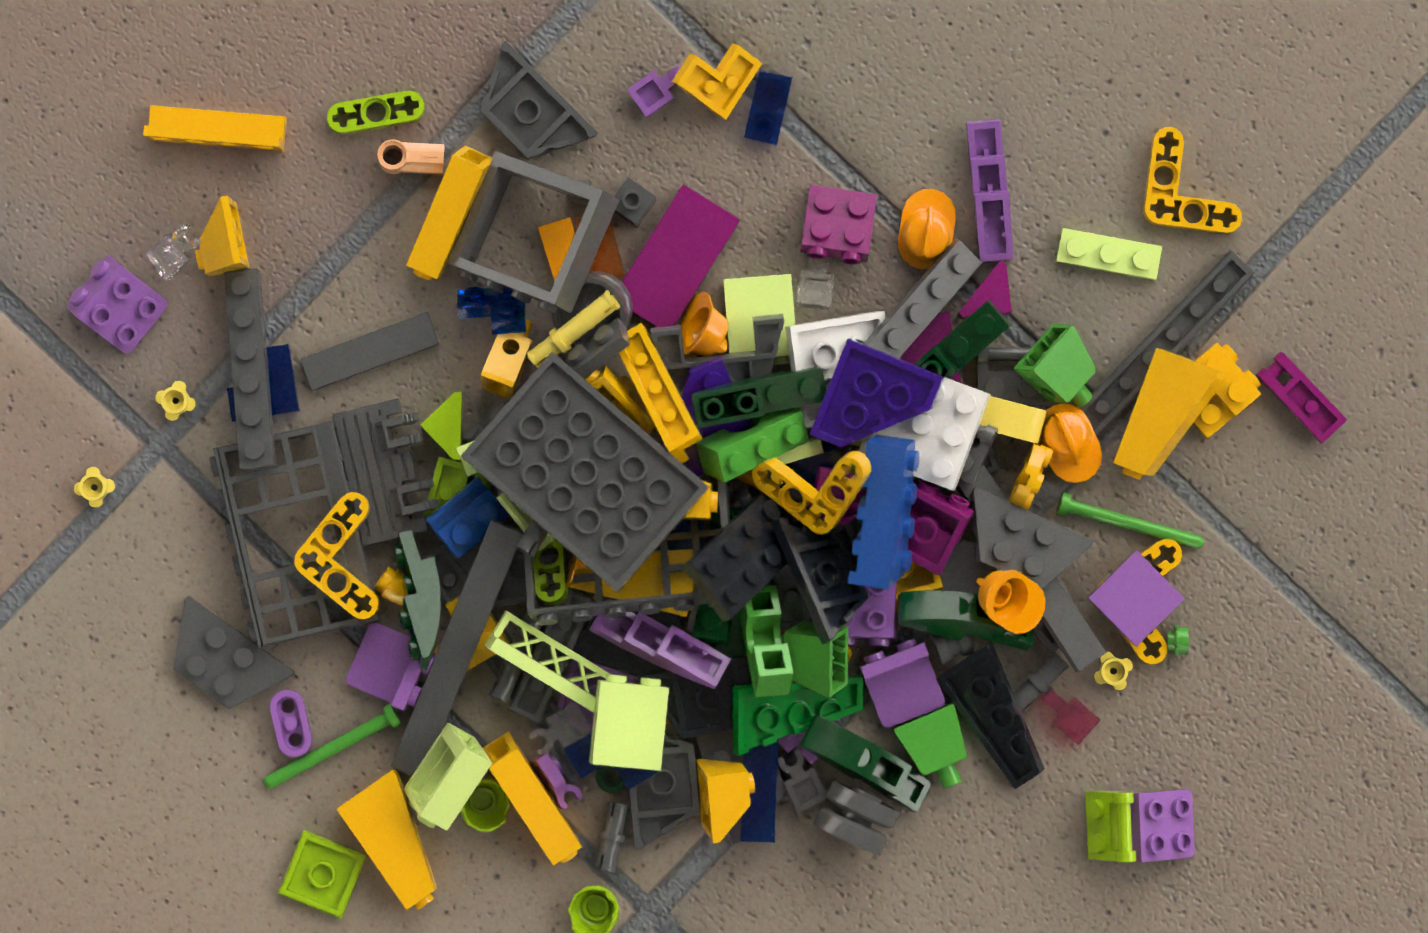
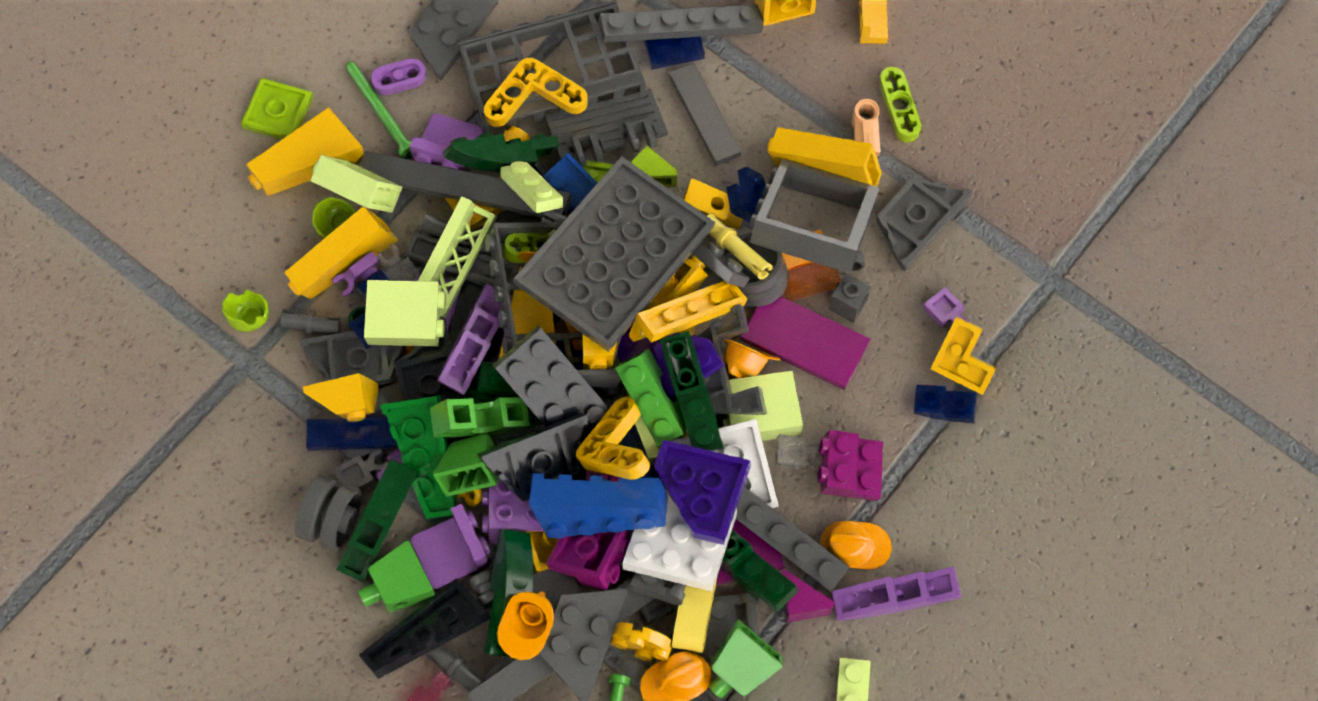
camera: 85 degrees right, 20 degrees down
(483, 566) = (531, 187): none -> yellowish green plate

